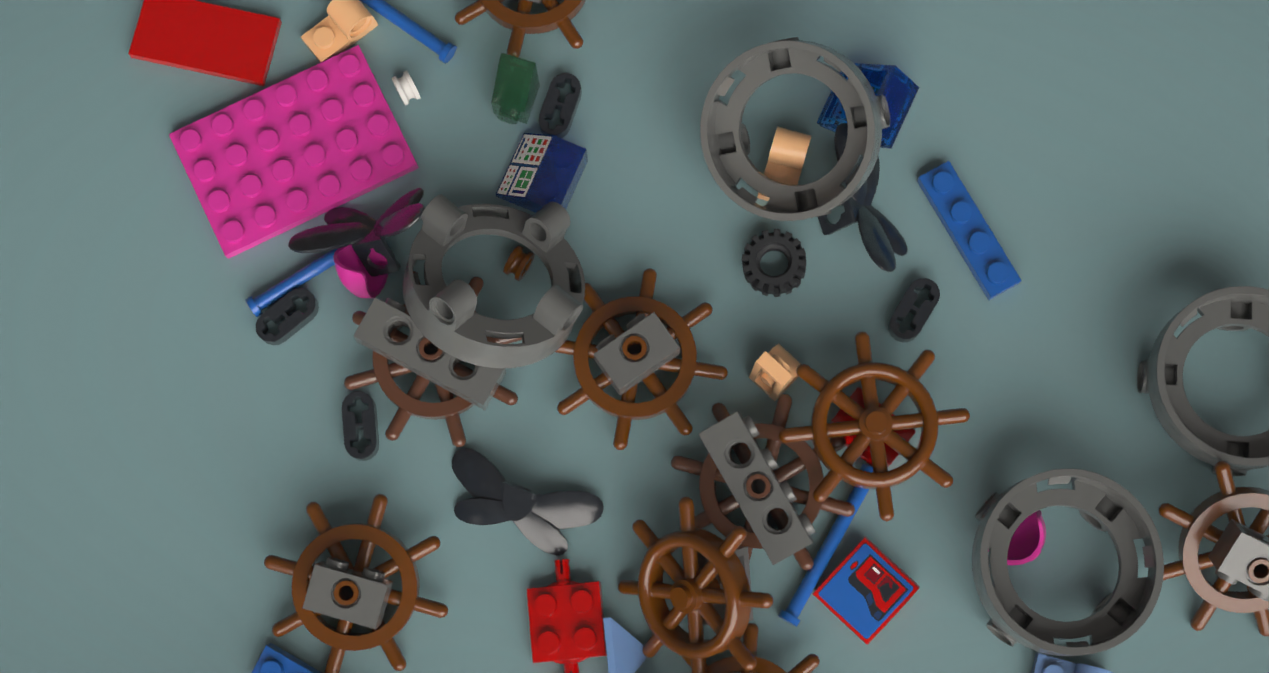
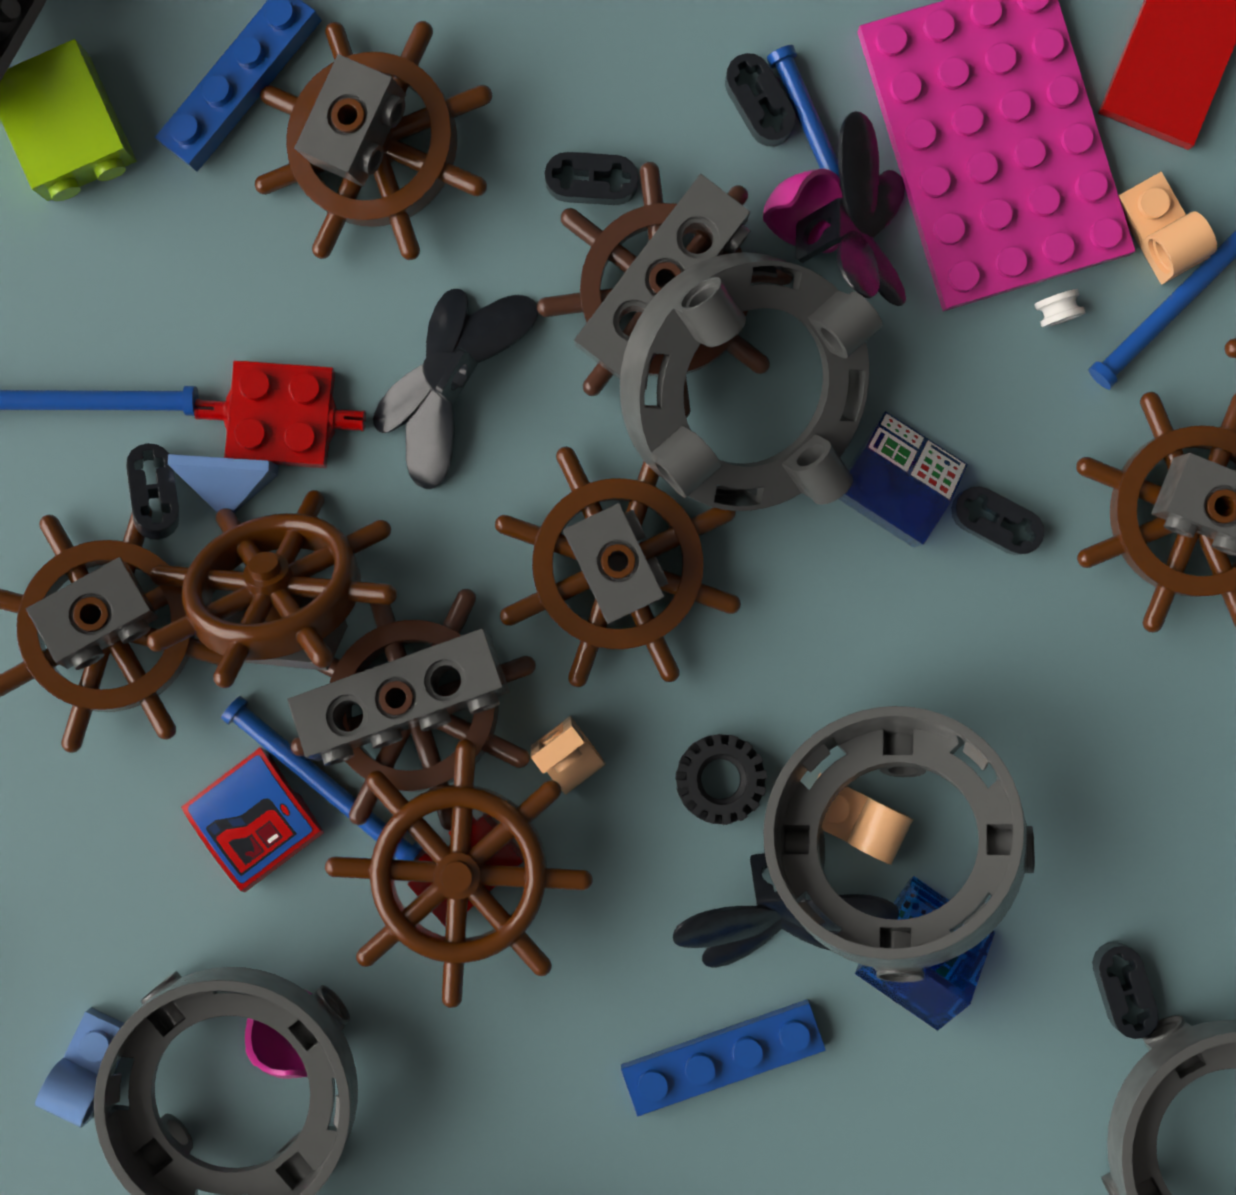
camera: 90 degrees right, 10 degrees up
(515, 89) = (1029, 459): clear green slope -> none
(518, 263) = (779, 426): reddish brown bush -> none
(921, 314) = (614, 968): black beam -> none

